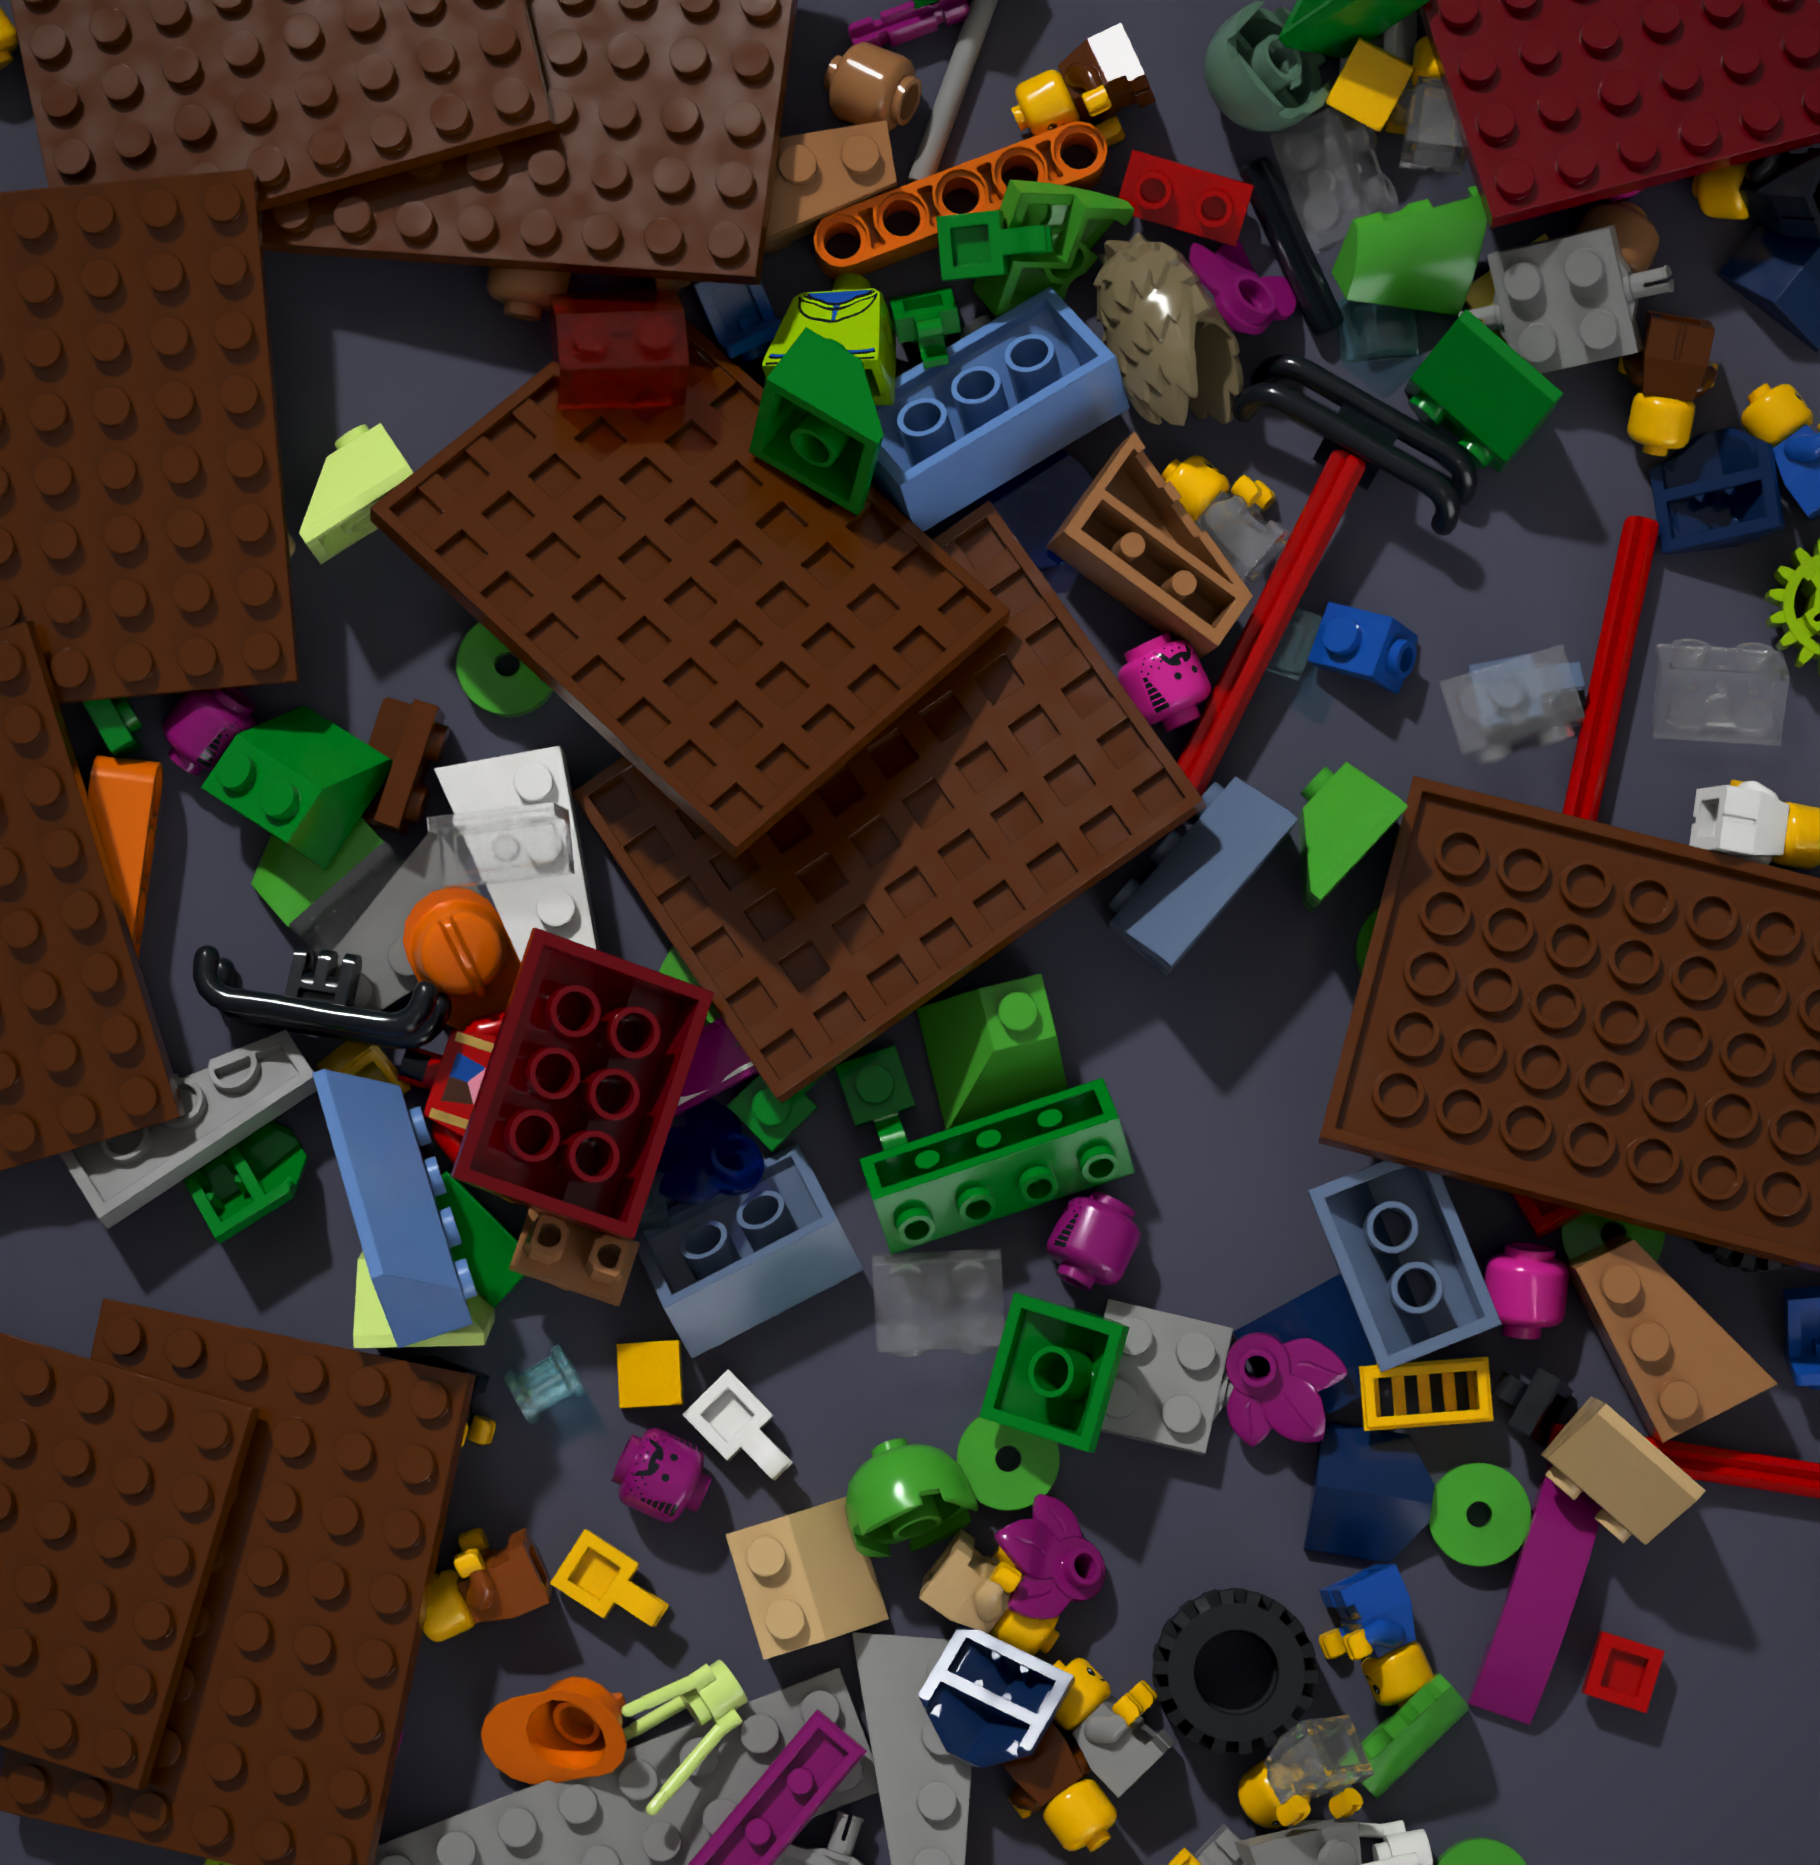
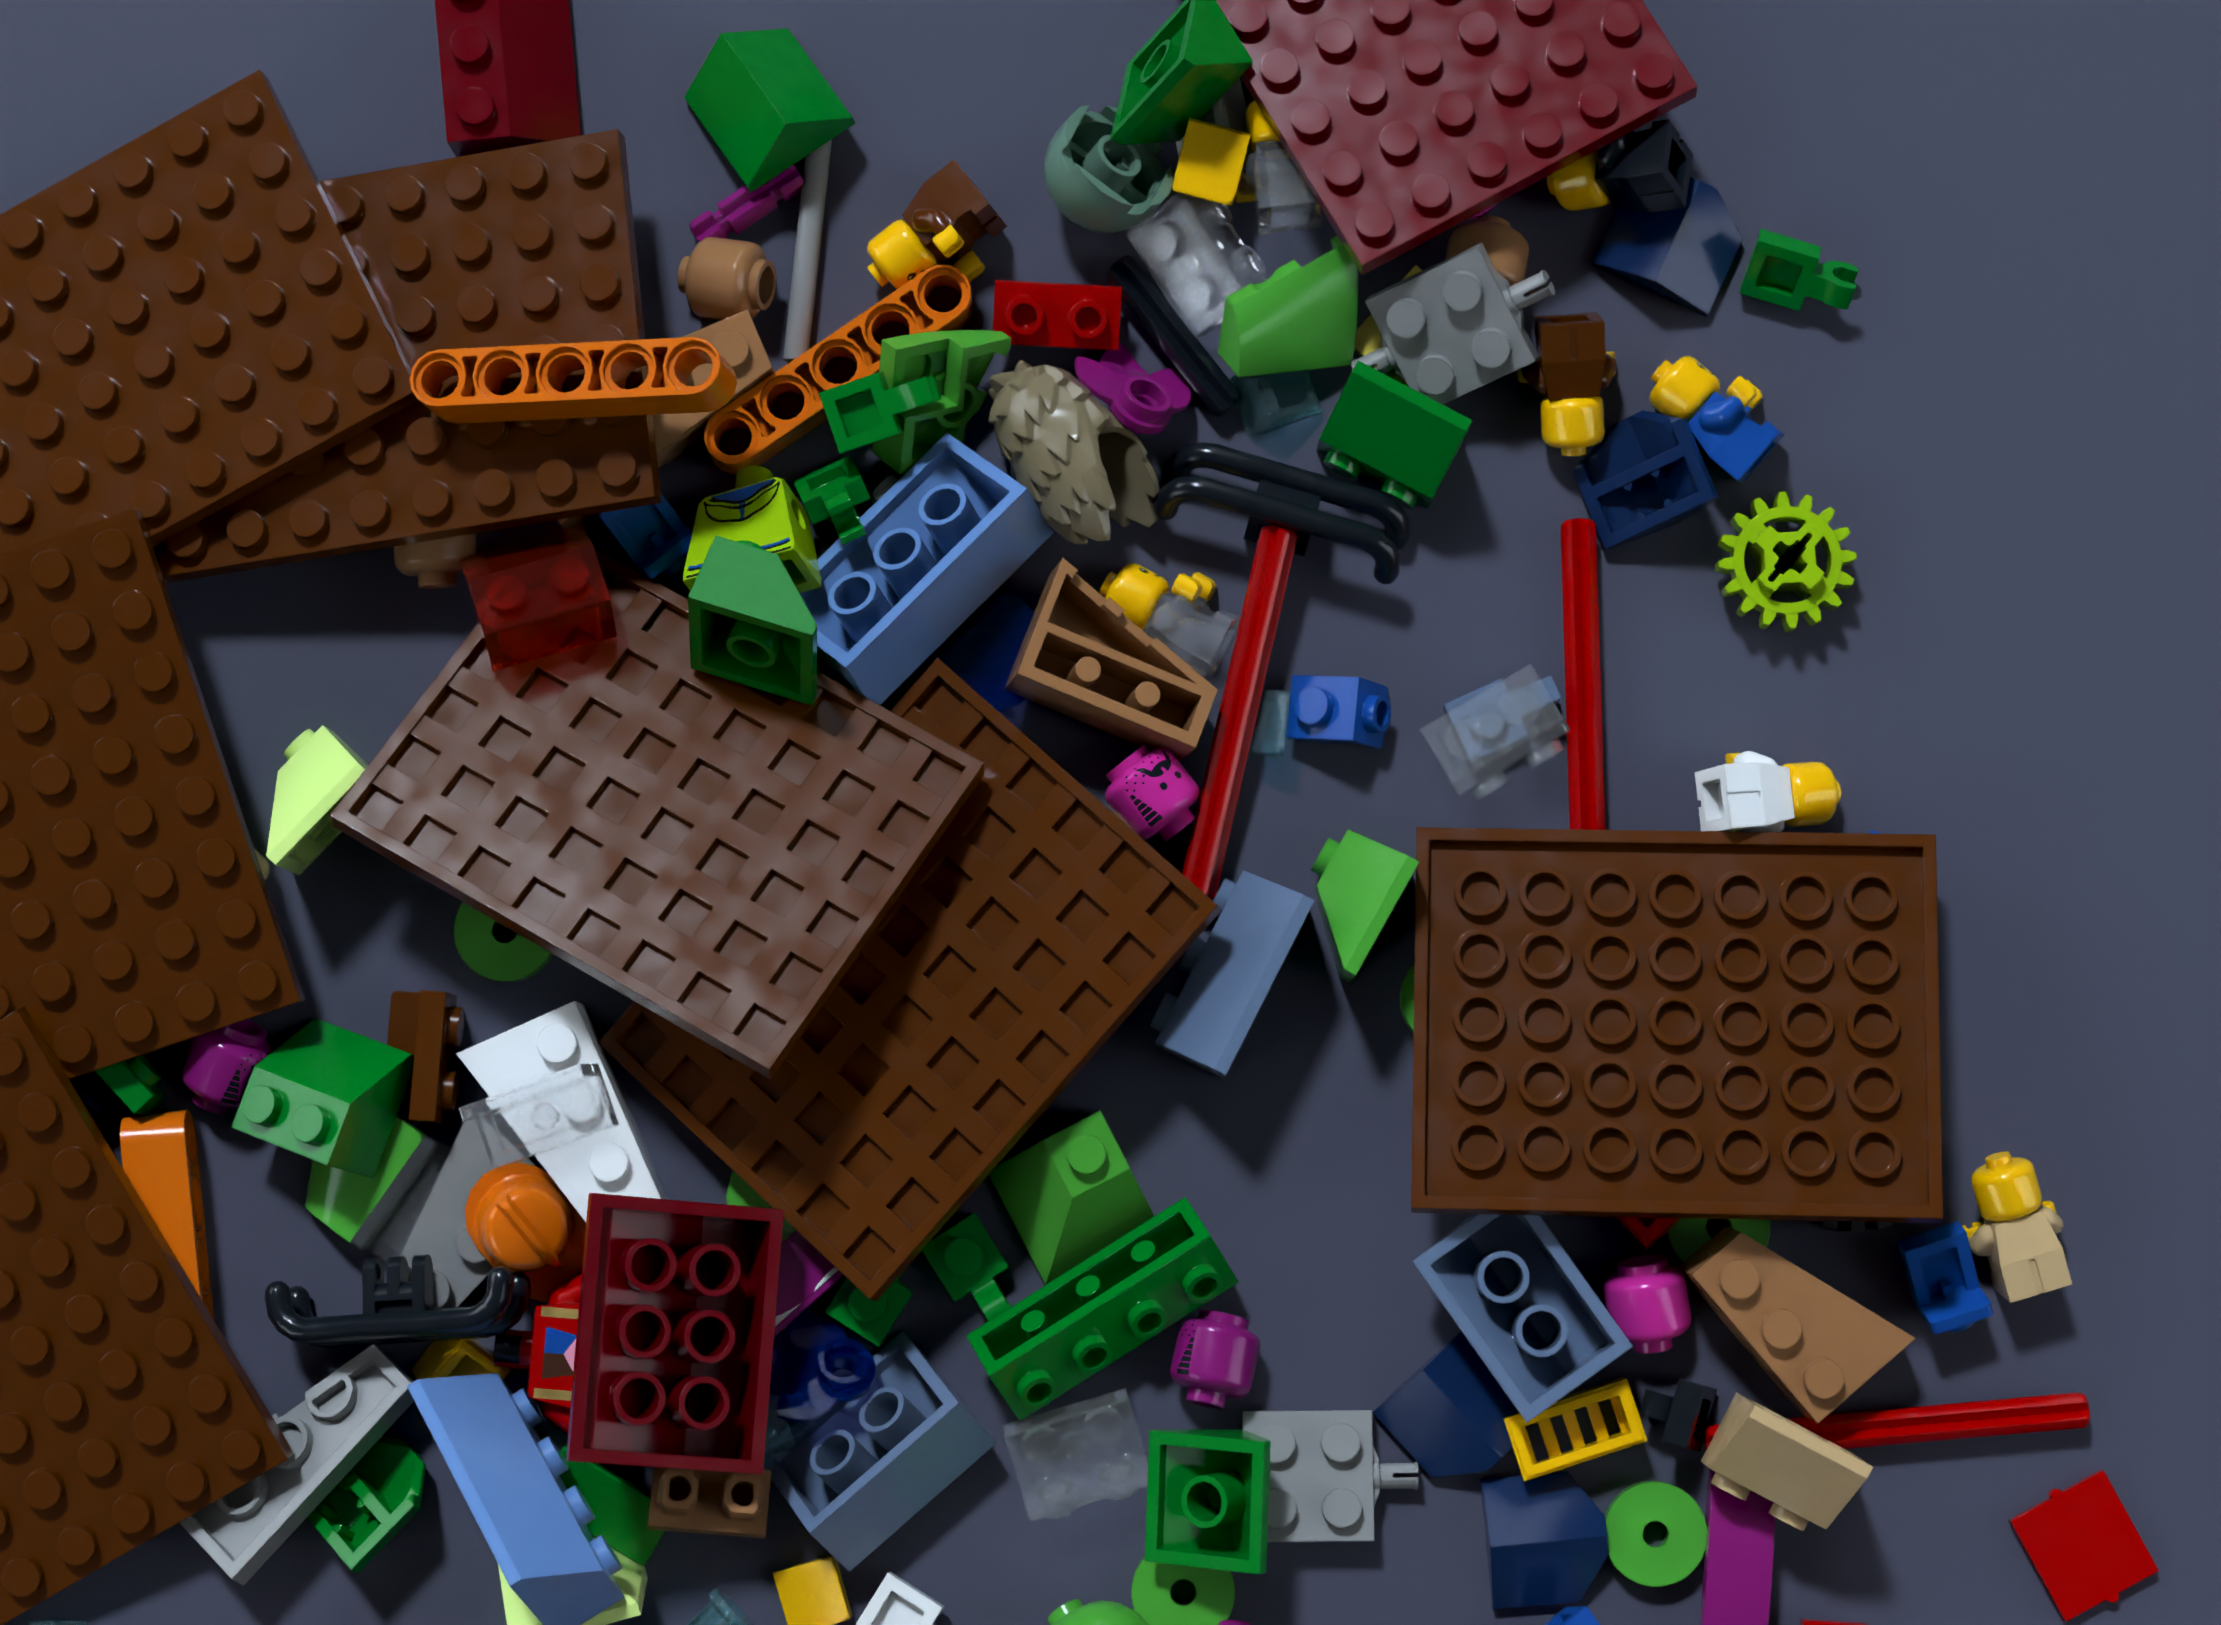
camera: 15 degrees left, 0 degrees up
(725, 166) = (547, 366): none -> orange beam
(1286, 1395) = (1439, 1464): magenta plate -> none
(1720, 693) = (1694, 672): clear bracket -> none

